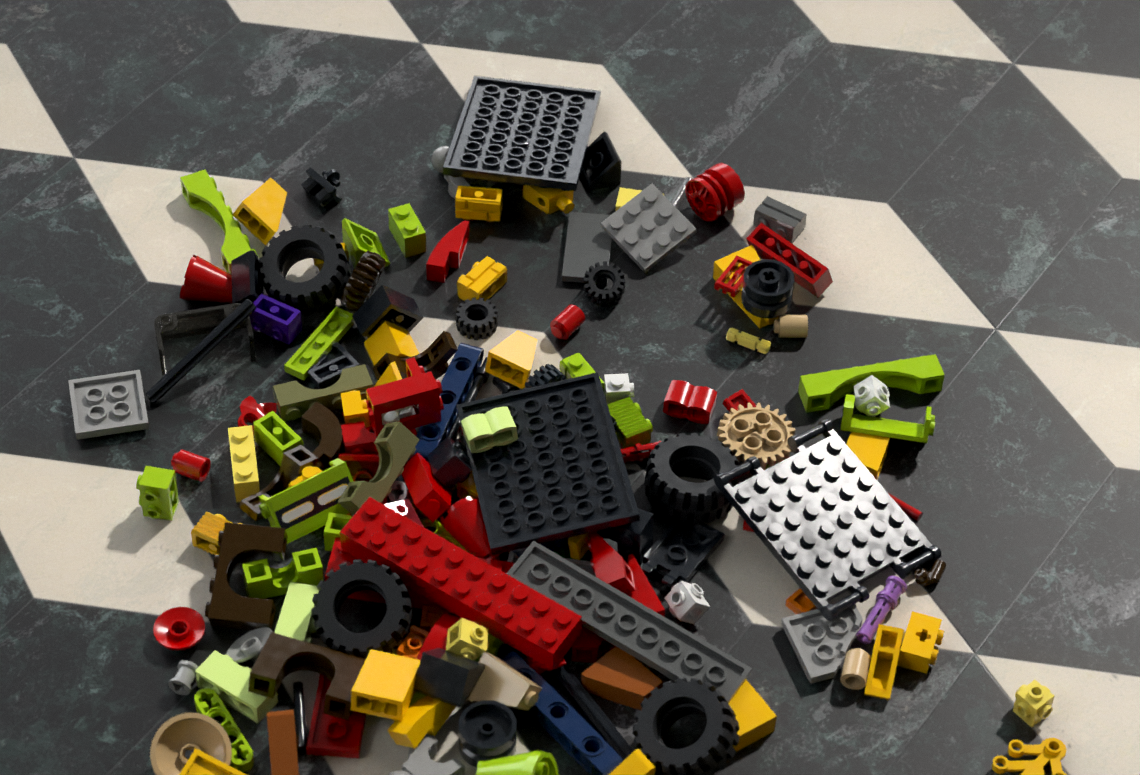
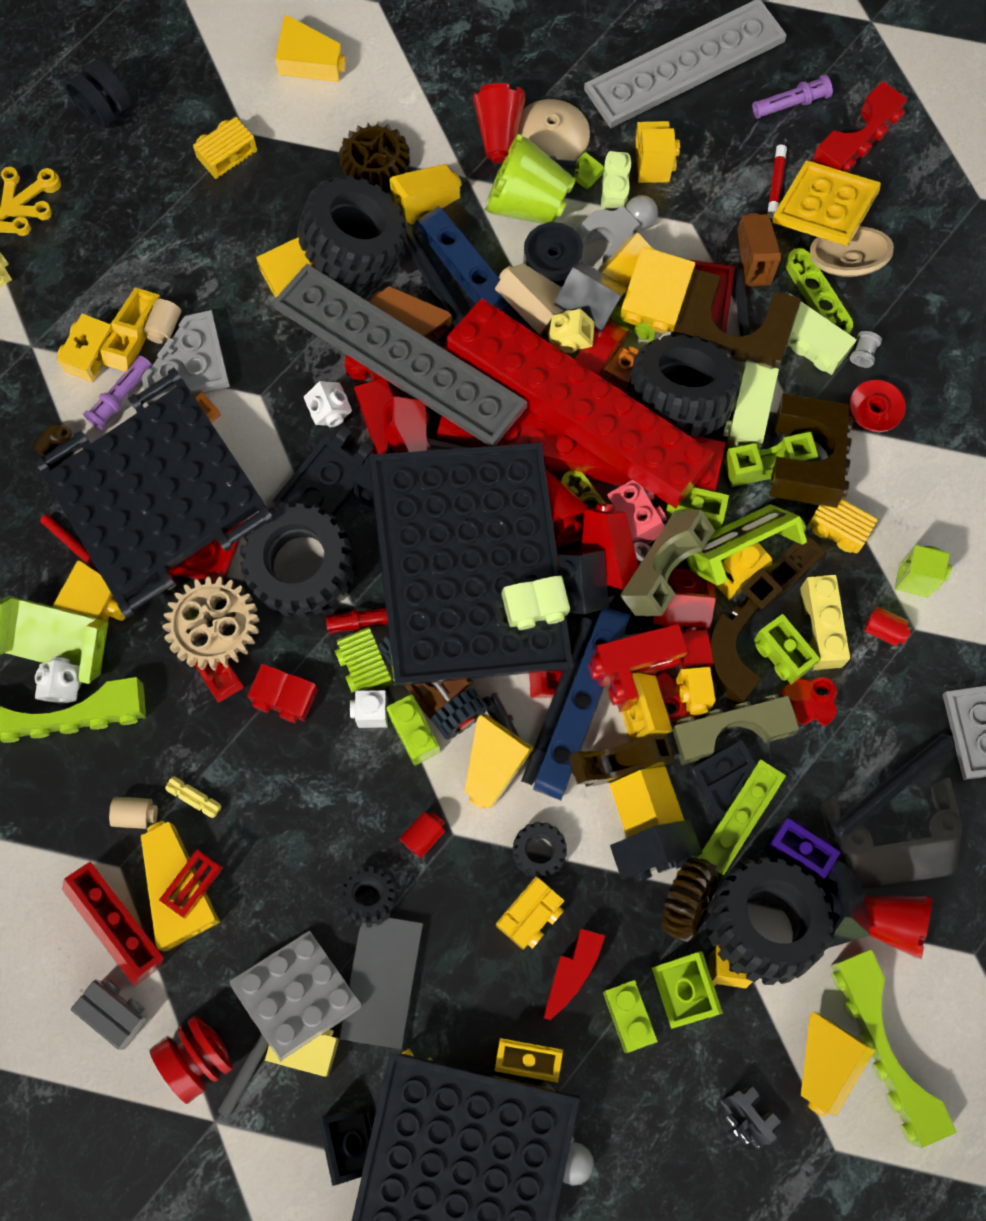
camera: 175 degrees left, 25 degrees up
(249, 645) = (807, 373): light grey dish -> none
(767, 288) = (134, 836): black wheel -> none

